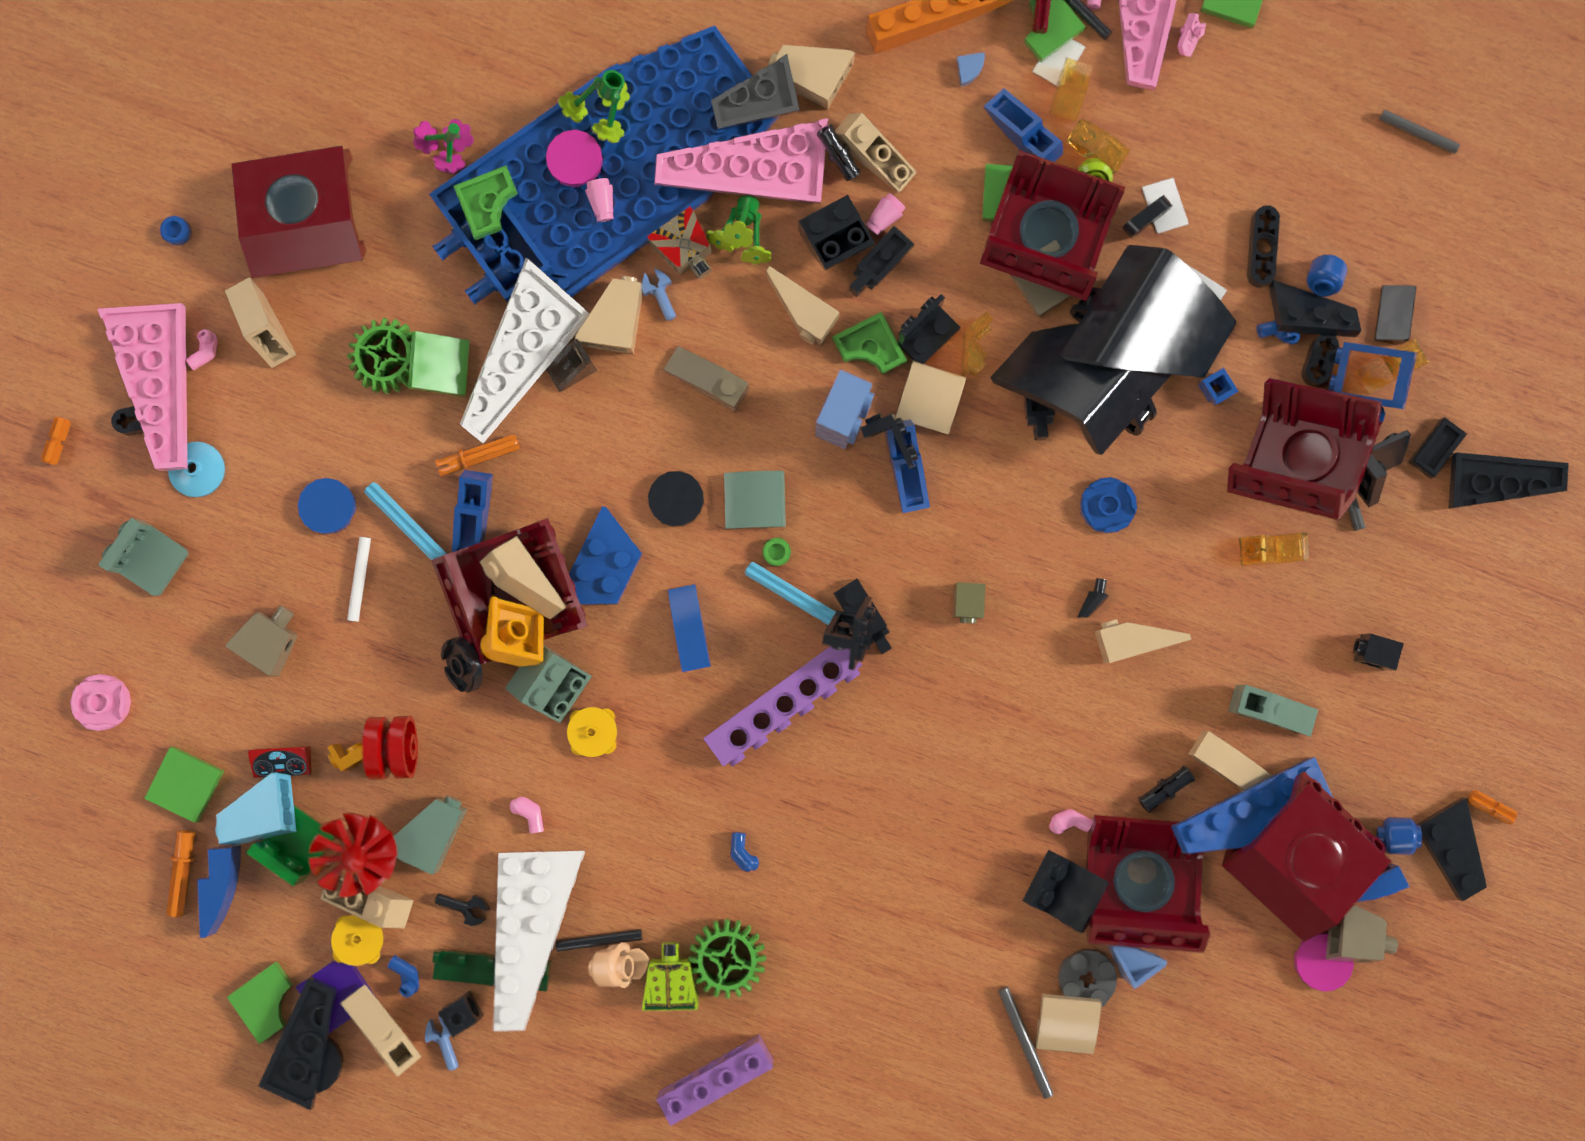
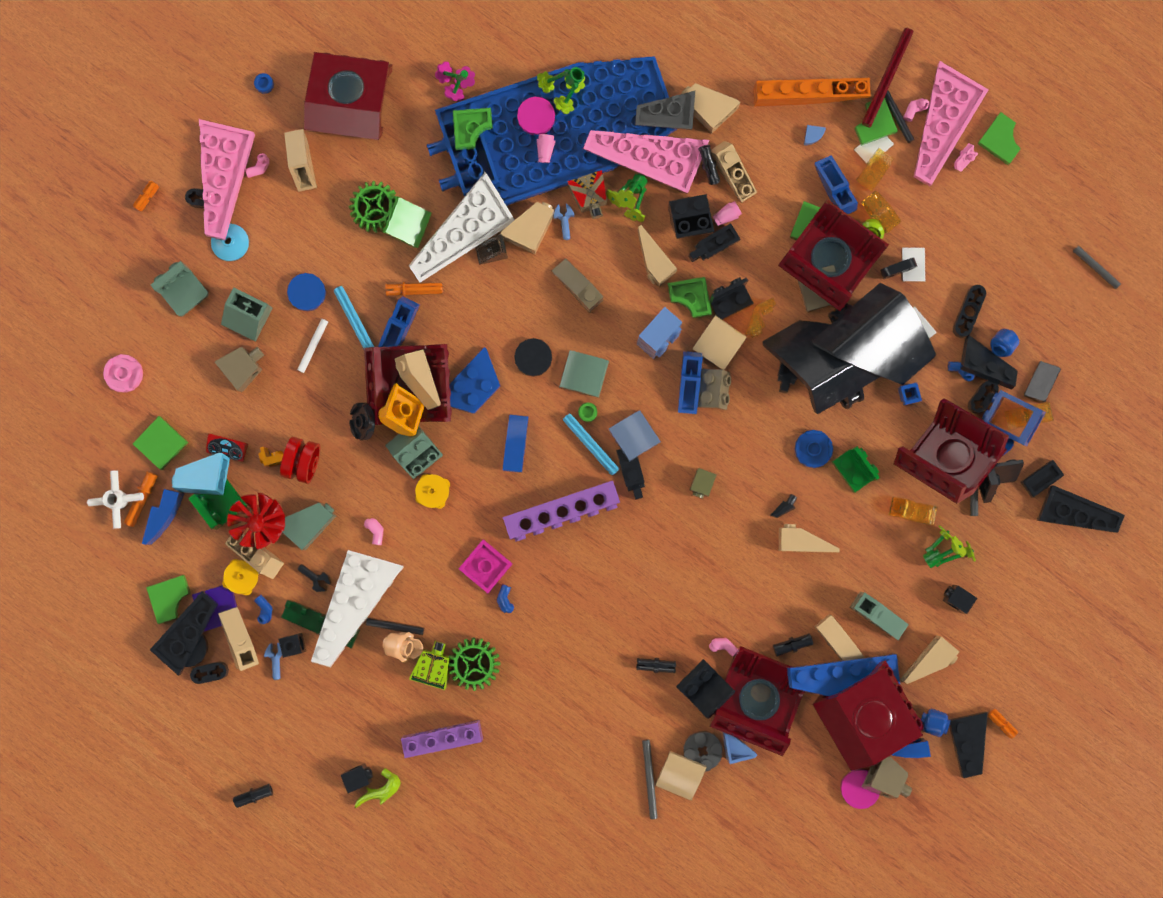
camera: 20 degrees right, 0 degrees up
(153, 885) = (109, 496): none -> white bar
(248, 564) = (245, 314): none -> sand green slope
(357, 1095) = (208, 668): none -> black beam
(700, 814) = (485, 566): none -> dark pink tile
(851, 632) = (619, 478): black bracket -> none
(852, 565) = (634, 435): none -> sand blue slope
(877, 425) = (678, 349): black bracket -> none
(944, 464) = (714, 389): none -> dark tan bracket
(984, 879) = (656, 665): none -> black pin
(1177, 514) = (856, 468): none -> green bracket
(1325, 604) = (935, 558): none -> plant
(1368, 747) = (934, 658): none -> tan slope

